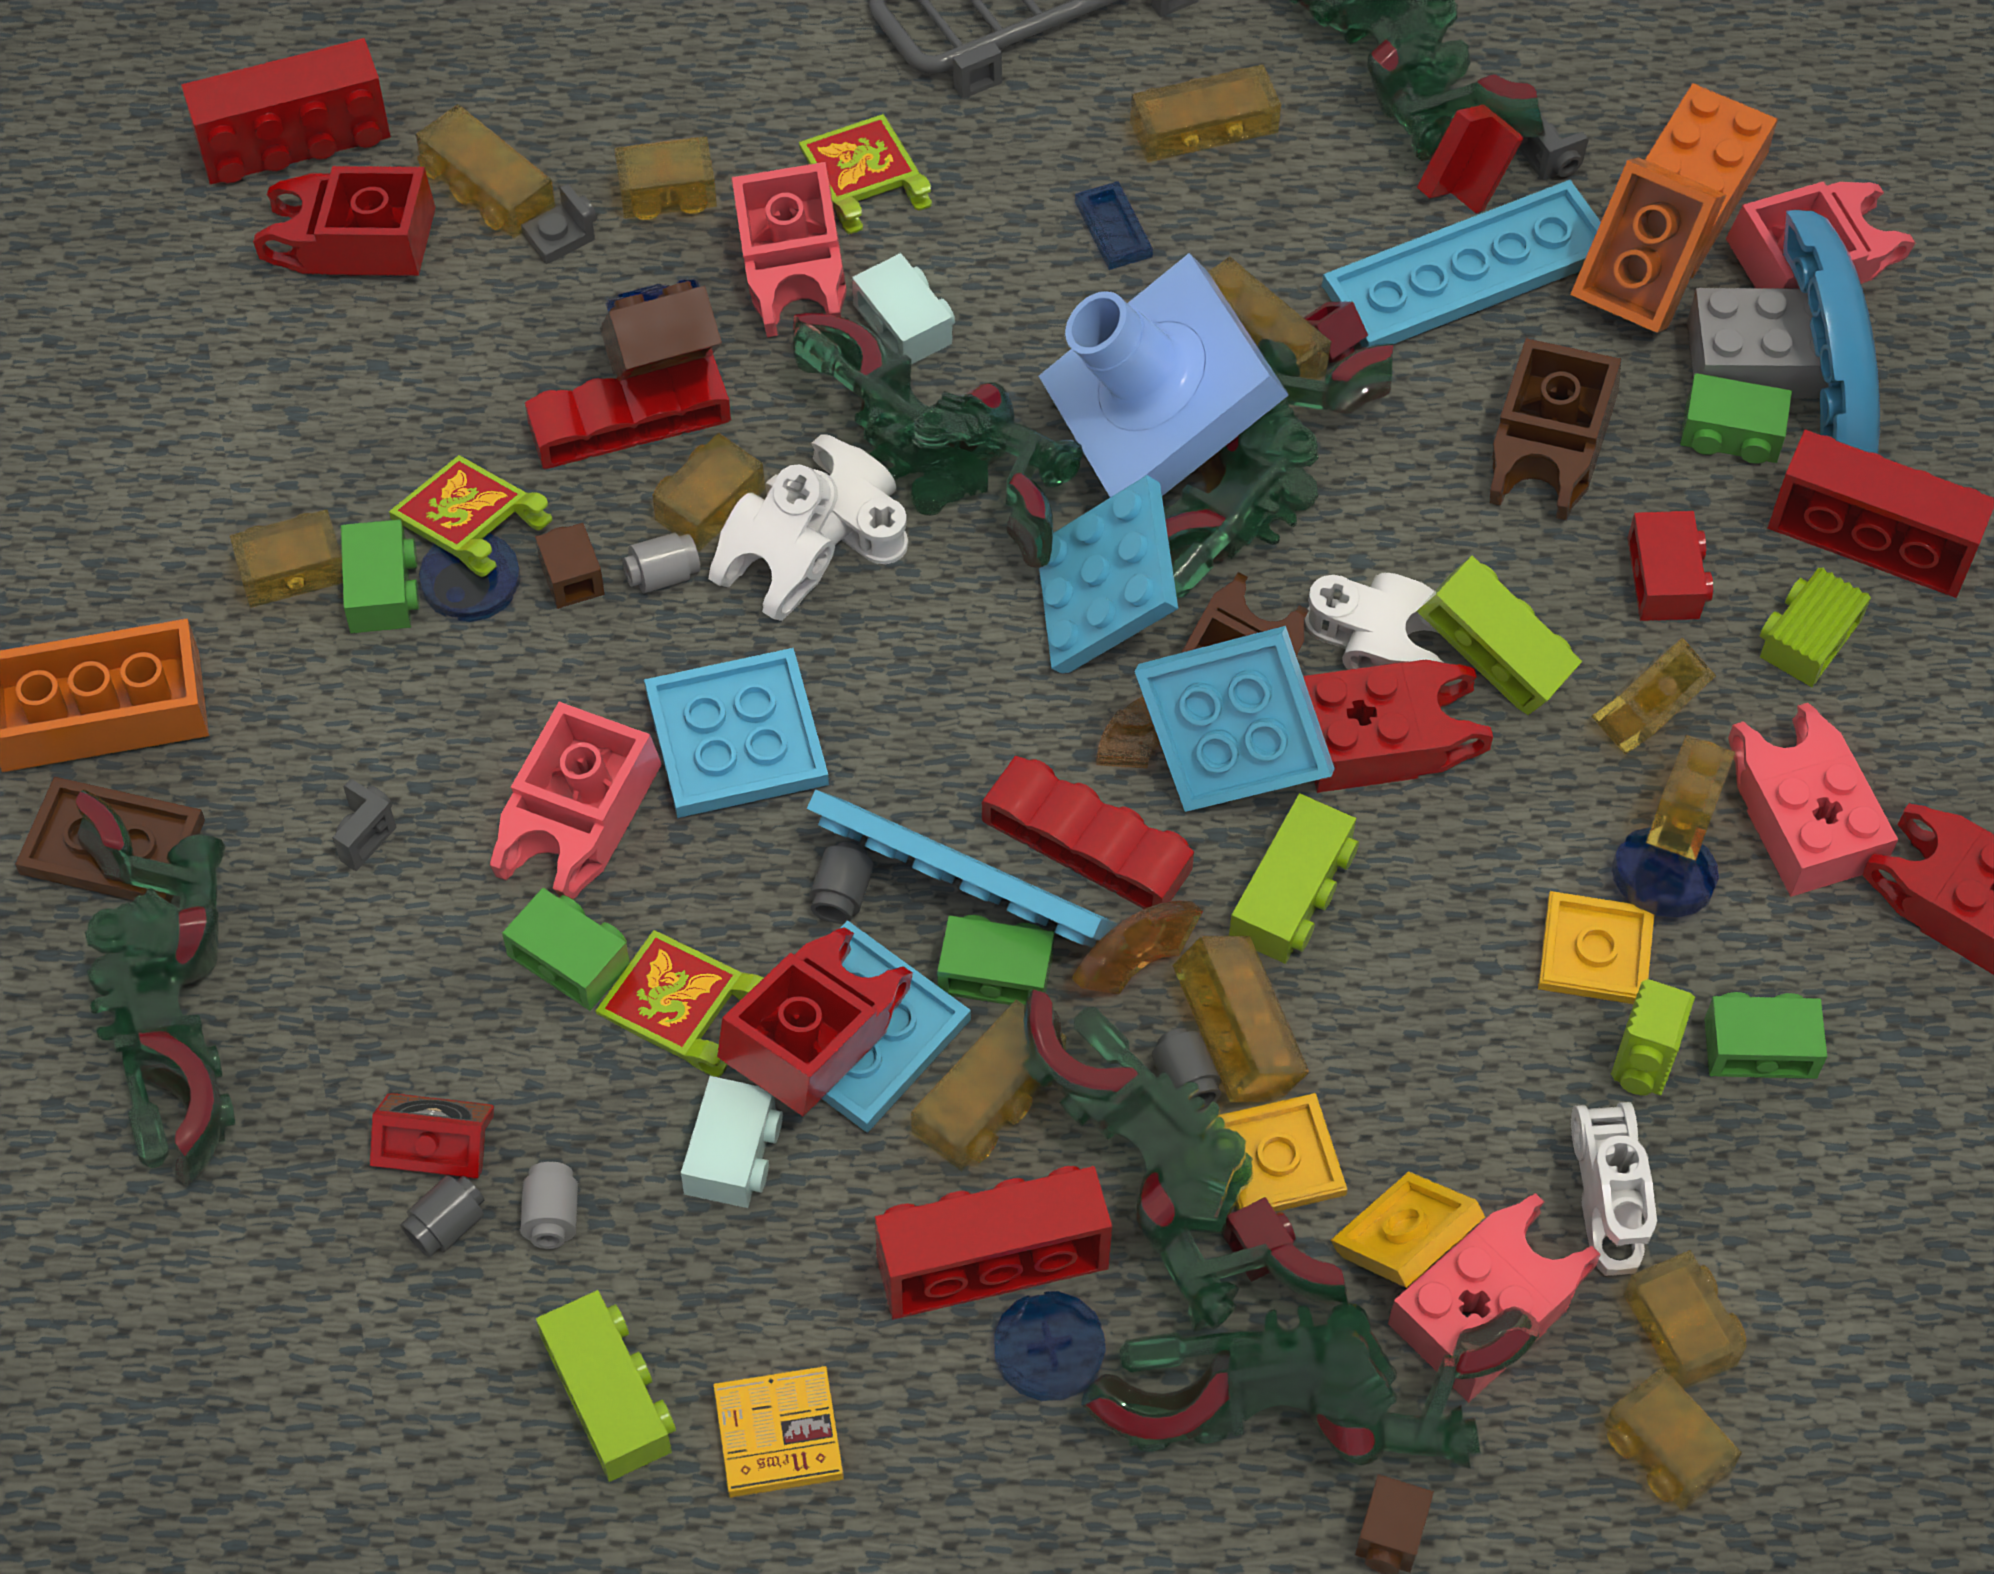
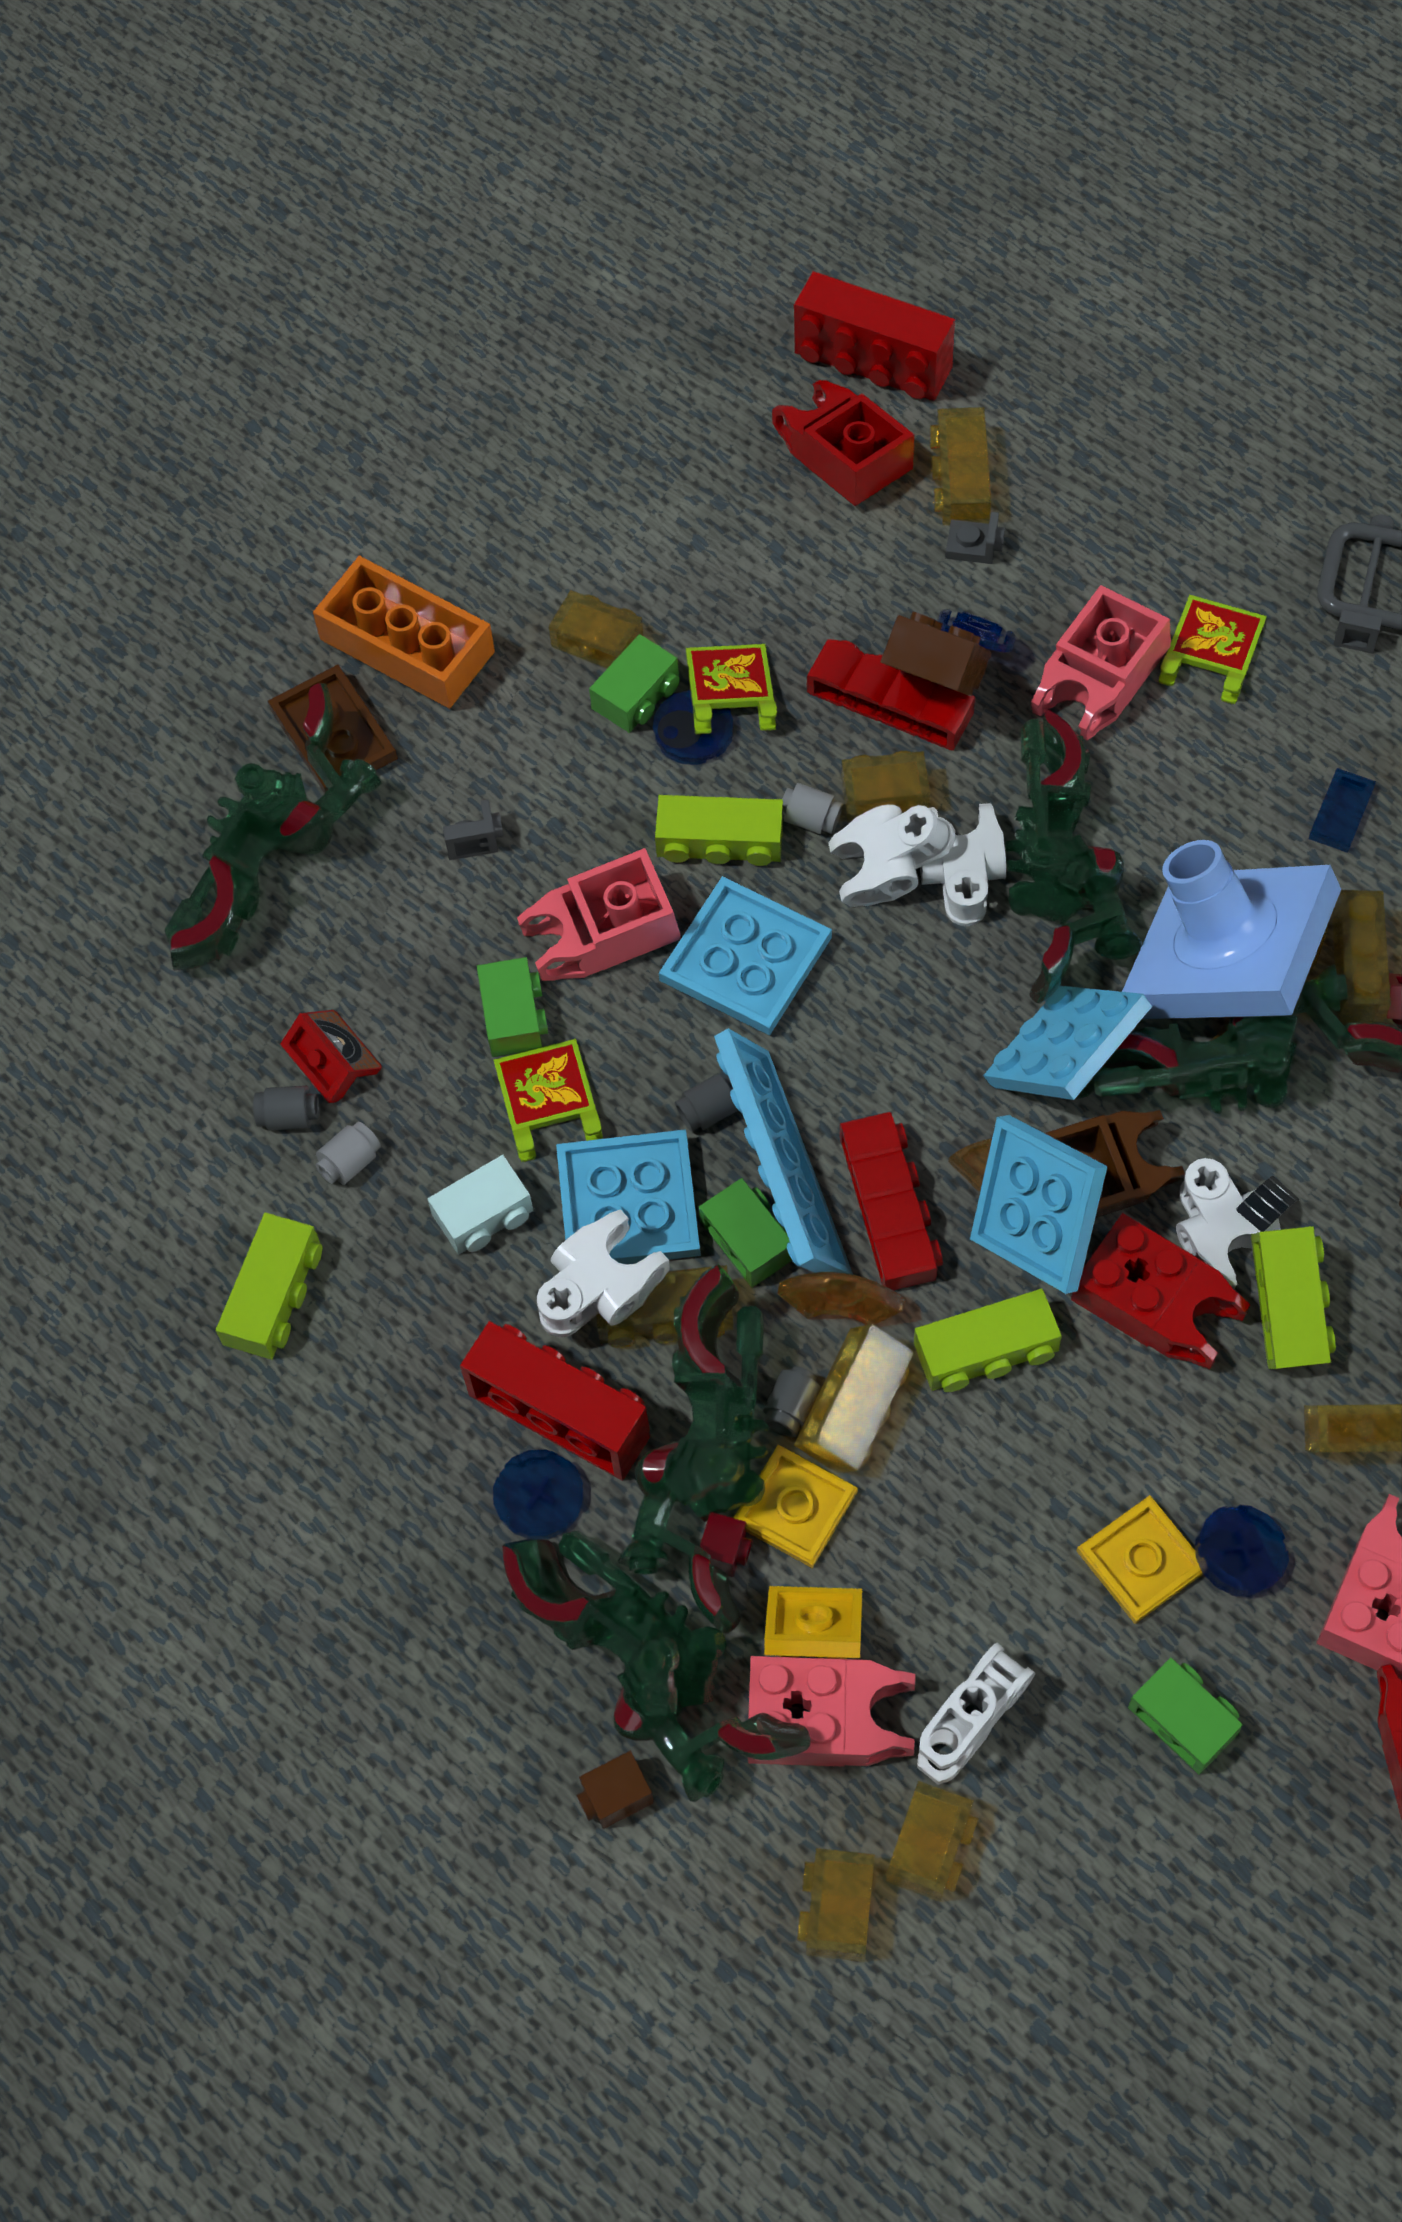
camera: 50 degrees right, 5 degrees up
(570, 565) = (753, 766): reddish brown brick -> none
(596, 641) = (719, 829): none -> lime brick
(665, 177) = (1071, 554): clear yellow brick -> none
(778, 1431) = (337, 1401): yellow tile -> none
(809, 1022) = (588, 1170): red brick -> none
(903, 308) = (1133, 760): light aqua brick -> none
(922, 1106) = (594, 1281): none -> white piece
(1402, 580) = (1266, 1203): none -> black sticker
(1652, 1038) = (1098, 1647): lime brick -> none
(1690, 797) = (1305, 1516): clear yellow brick -> none

